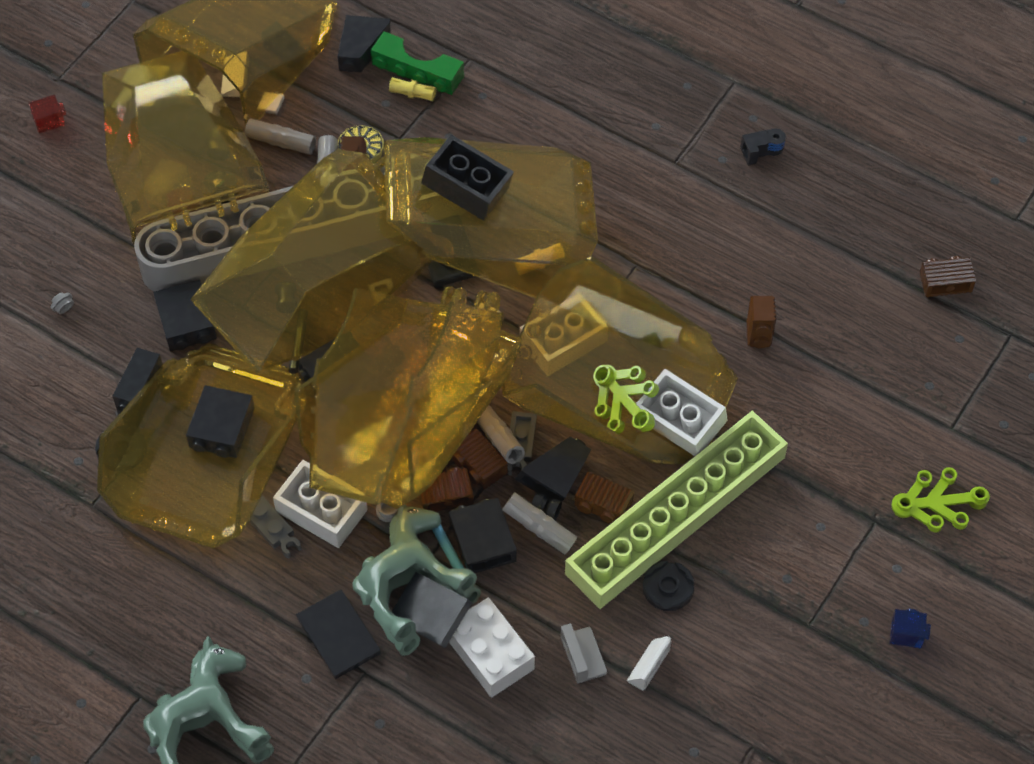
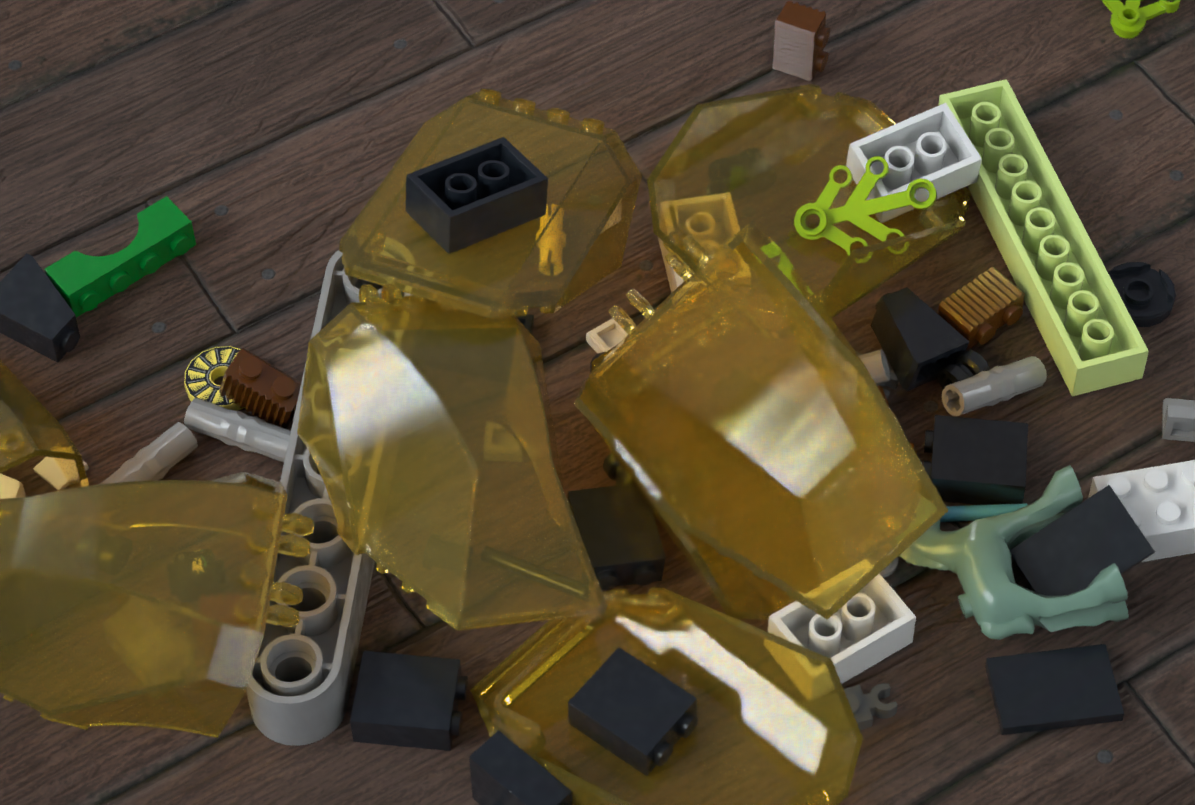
camera: 65 degrees left, 5 degrees down
(412, 89) = (161, 282): light yellow pin -> none

